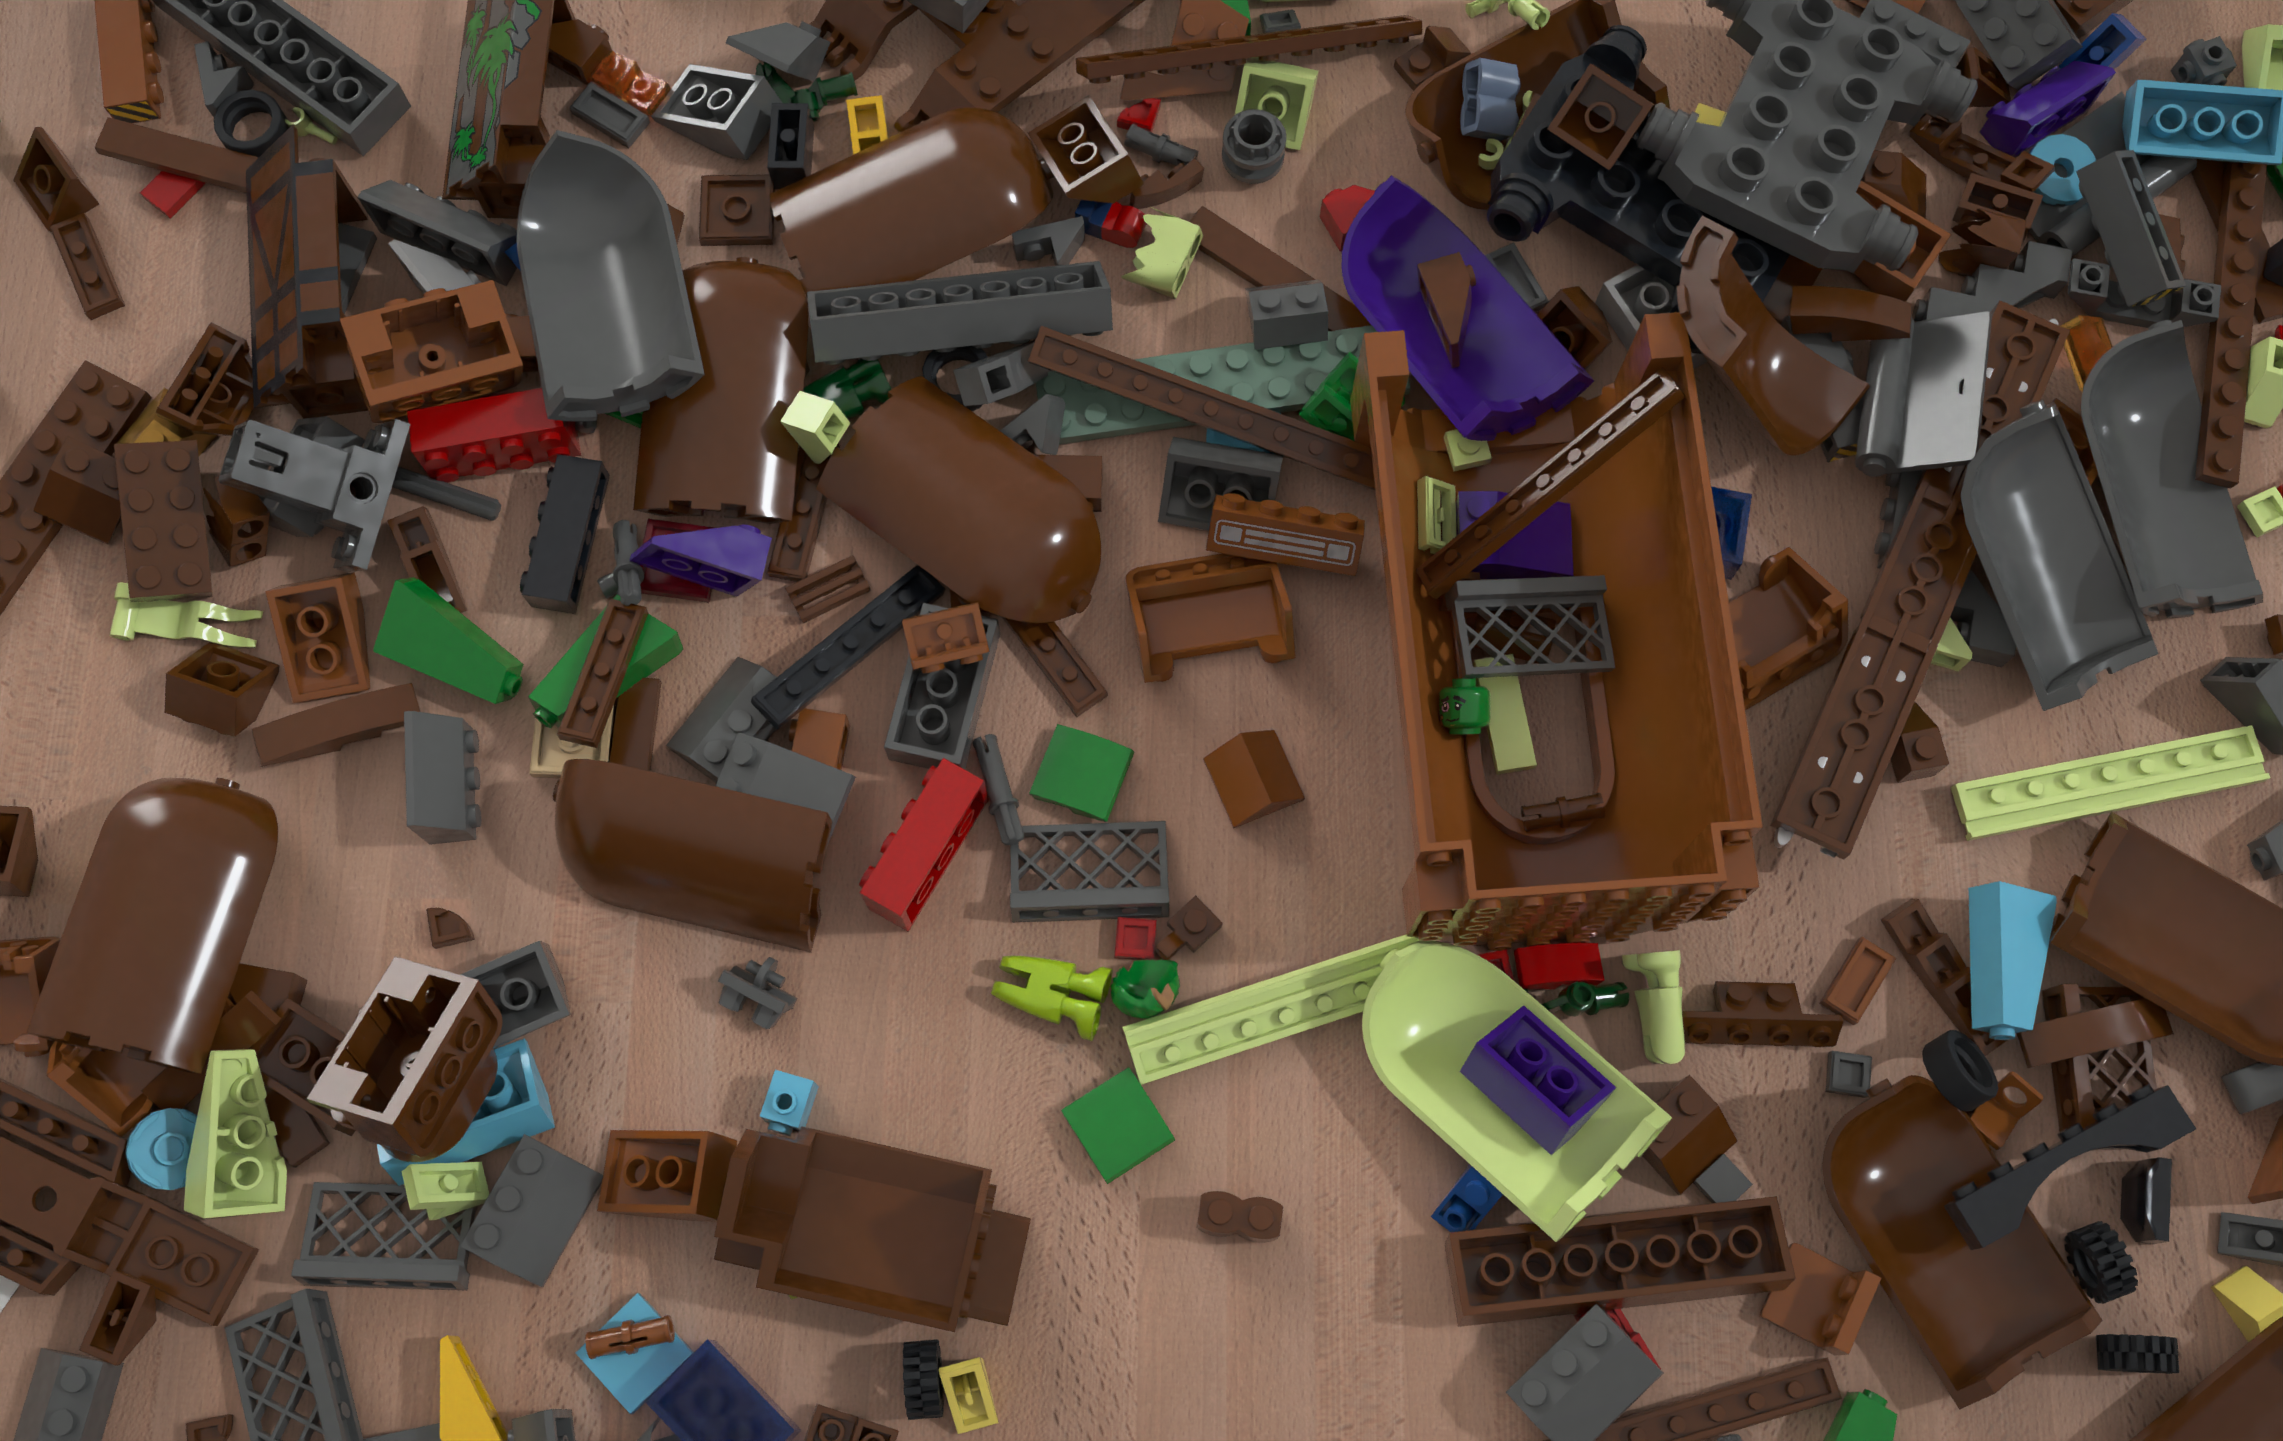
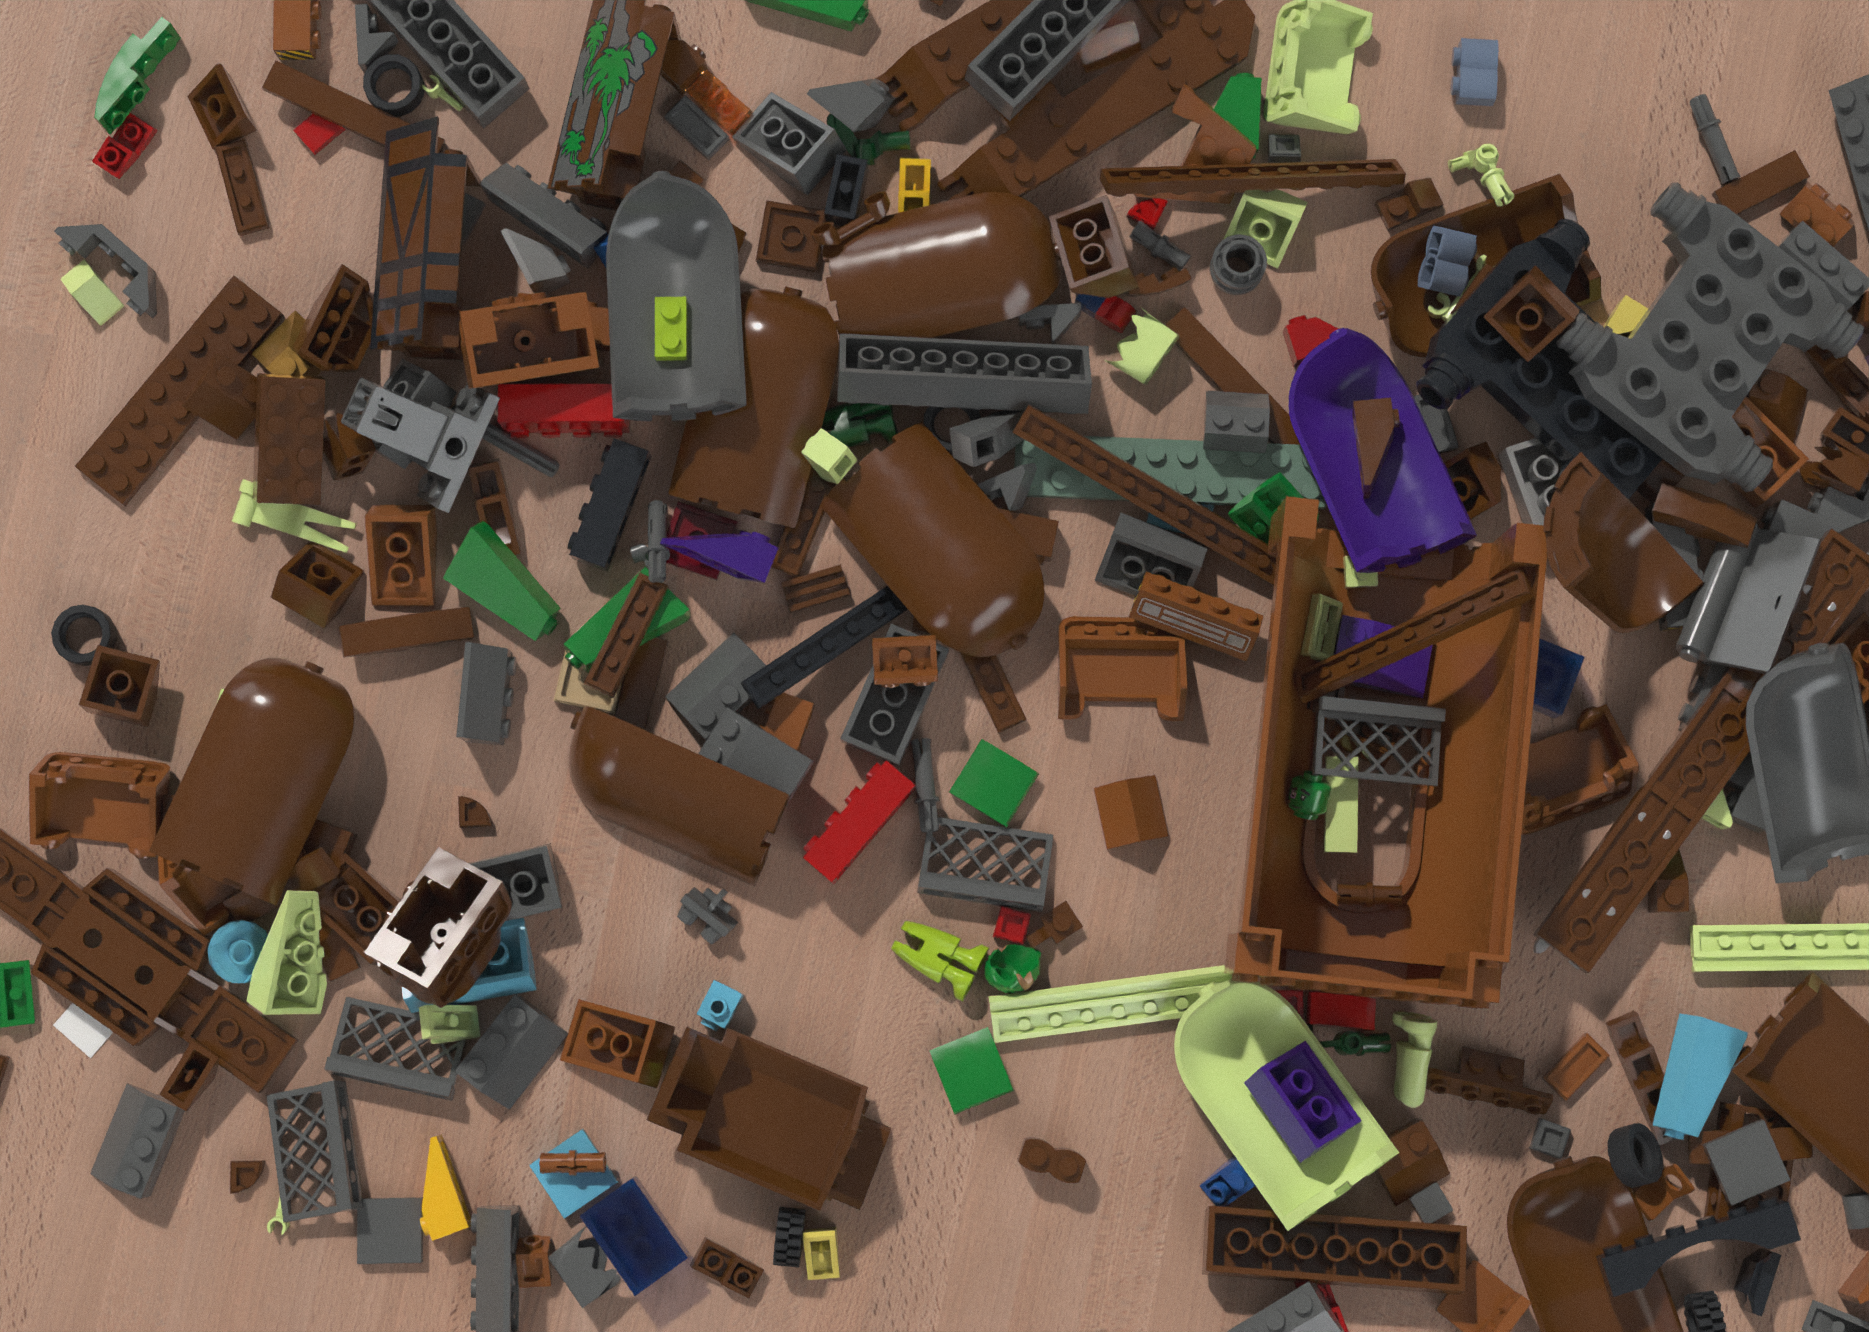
camera: 10 degrees right, 10 degrees up
(605, 315) = (670, 328): none -> lime plate
(826, 152) = (876, 206): none -> reddish brown bar
(2100, 1049) = (1746, 1162): none -> dark grey tile

